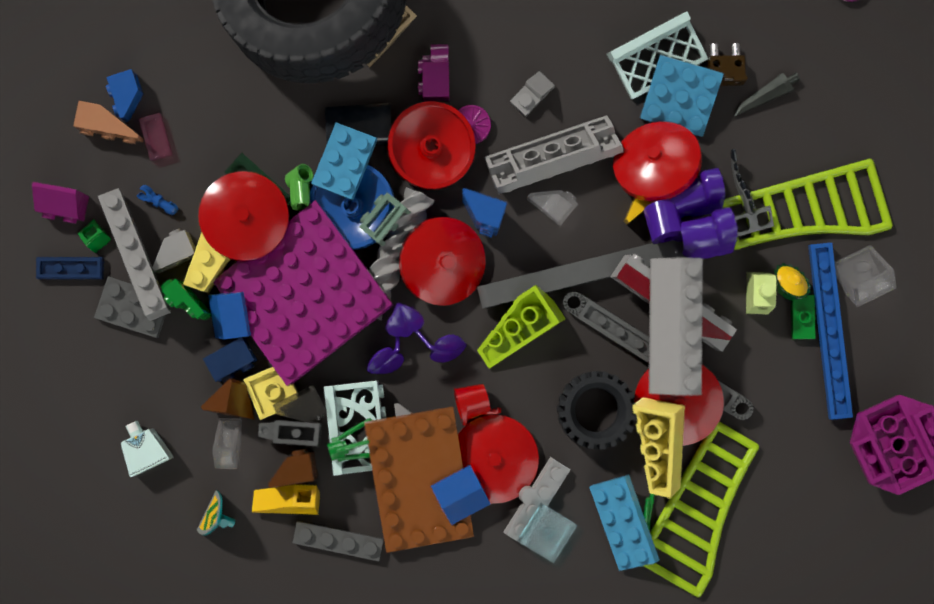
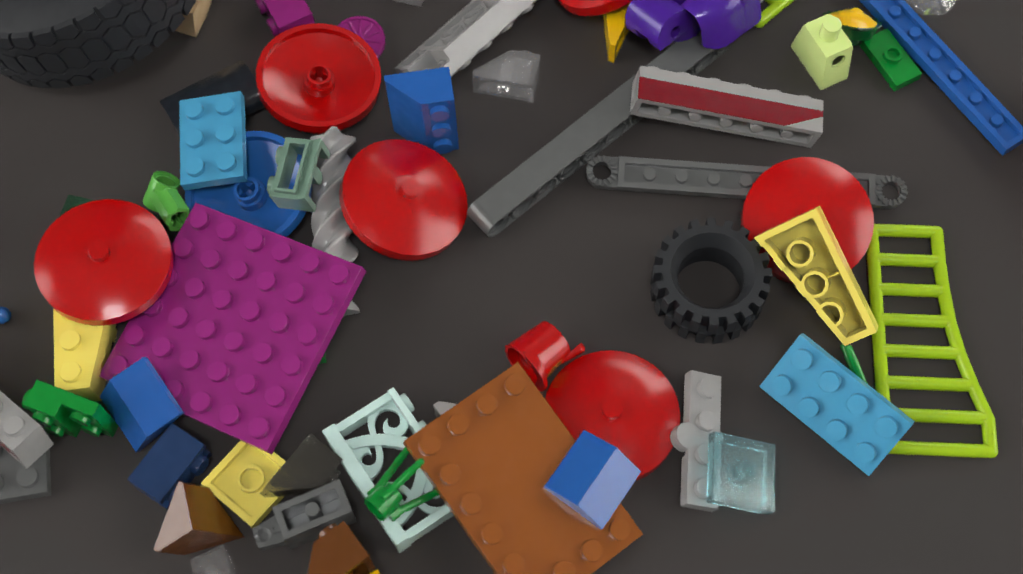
camera: 25 degrees left, 20 degrees down
(174, 251) = (24, 361): light grey slope -> none
(403, 323) = (388, 274): dark purple plant -> none
(525, 320) = (551, 226): lime wedge -> none
(675, 326) = (749, 118): light grey slope -> none

